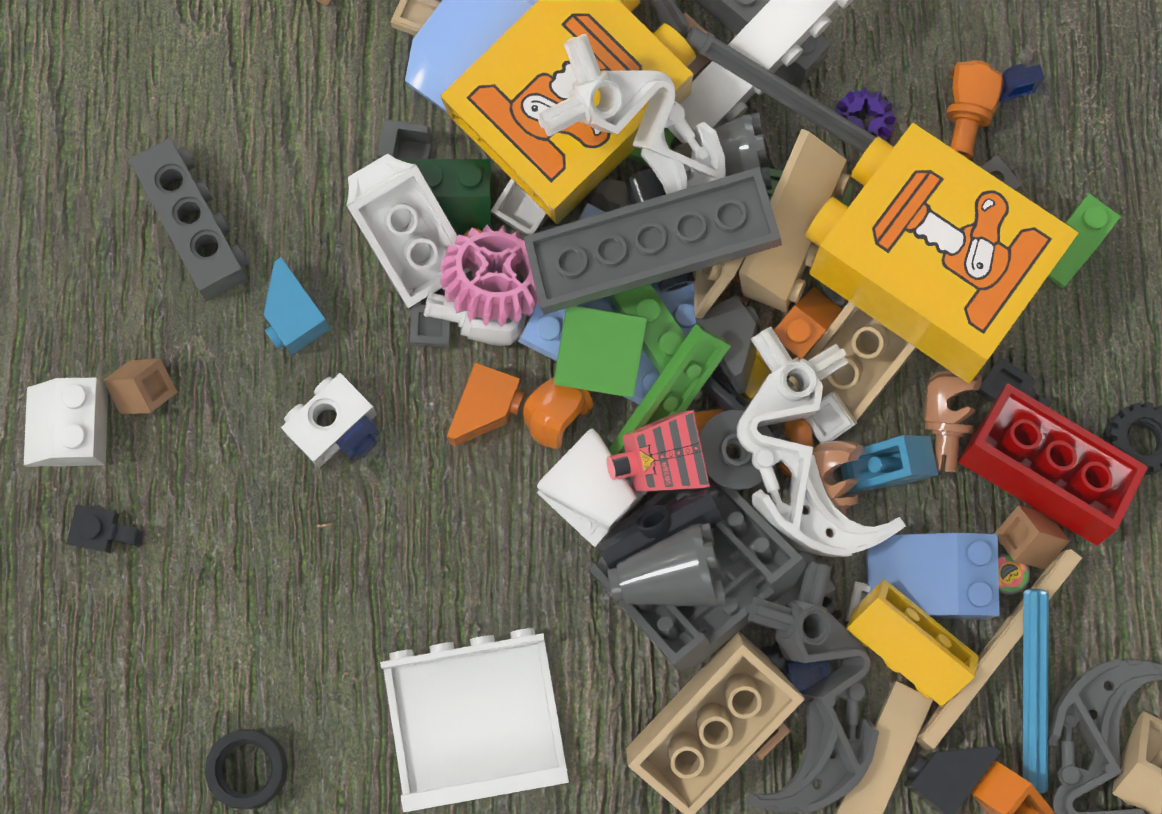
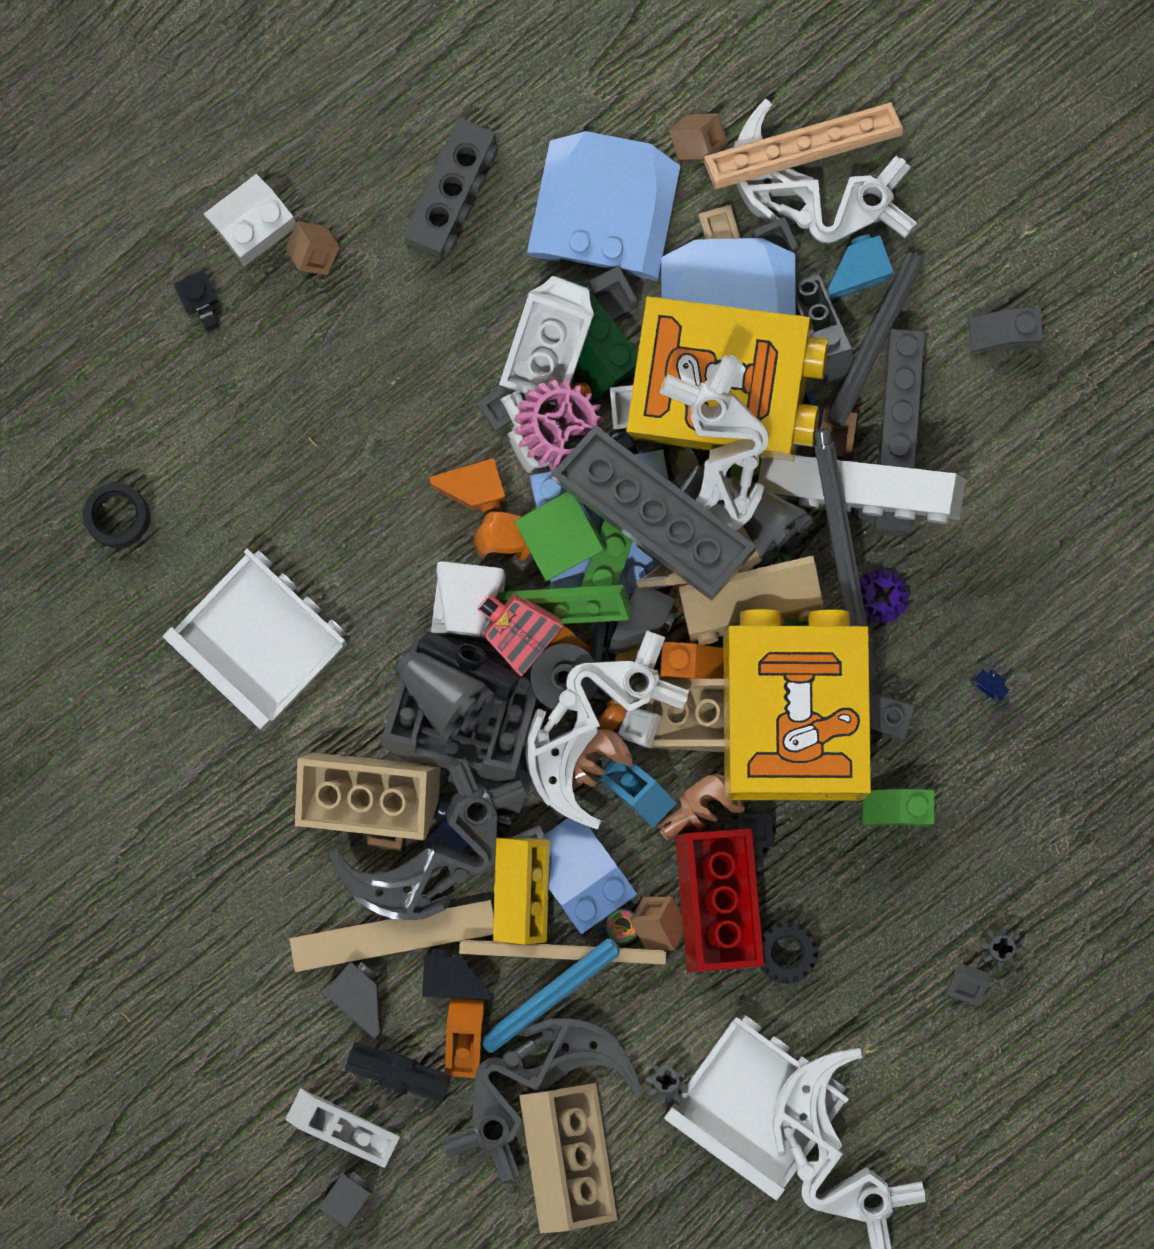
camera: 60 degrees right, 5 degrees up
(291, 312) = (438, 307): dark azure slope -> none
(314, 96) = (605, 204): none -> light blue wedge
(319, 441) = (399, 402): white brick -> none
(359, 439) = (385, 420): clear blue plate -> none
(976, 96) = (947, 664): orange piece -> none

